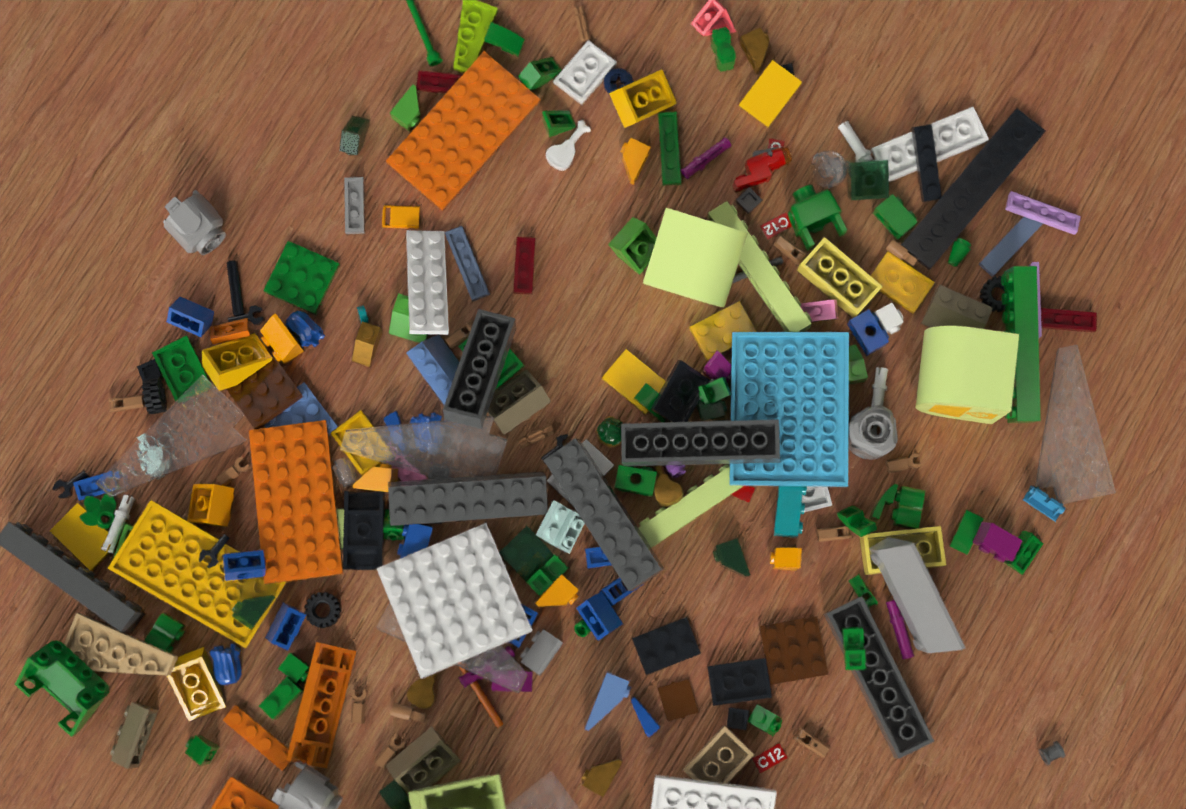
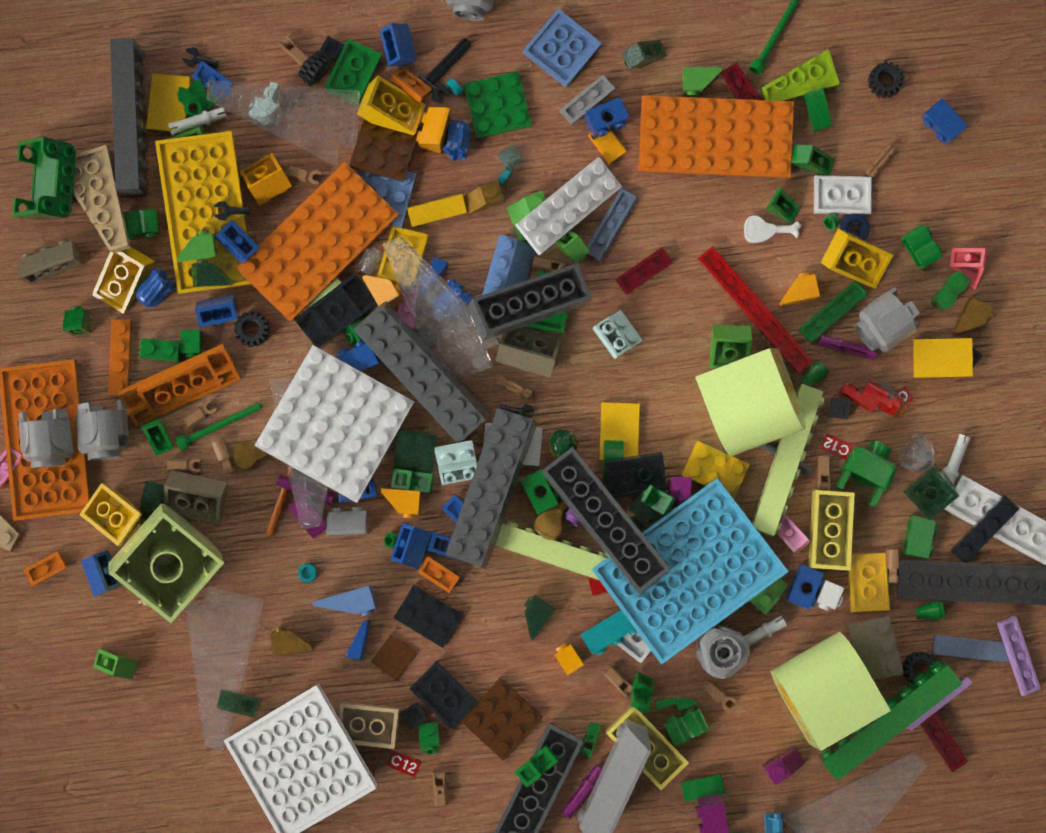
camera: 55 degrees right, 5 degrees up
(223, 599) = (199, 247): none -> bright green slope
(260, 299) = (454, 87): none -> teal tile
(297, 193) = (562, 48): none -> medium blue plate
(346, 388) = (436, 210): none -> yellow tile
(349, 755) = (158, 436): none -> green slope
(350, 299) = (510, 156): none -> clear light blue slope
(371, 736) = (185, 441): none -> green piece
(381, 190) = (613, 109): none -> blue brick
(461, 304) = (572, 247): none -> bright green slope
(556, 717) = (307, 572): none -> teal tile
(558, 323) = (617, 334): none -> light aqua brick
(599, 100) = (827, 222): none -> green hinge
(621, 204) = (754, 309): none -> red plate
(639, 611) = (438, 574): none -> orange plate
(672, 44) = (921, 246): none -> green brick
(708, 197) = (815, 374): none -> green cone
(711, 112) = (886, 322): none -> light grey piece
(996, 456) = (783, 765): none -> magenta slope

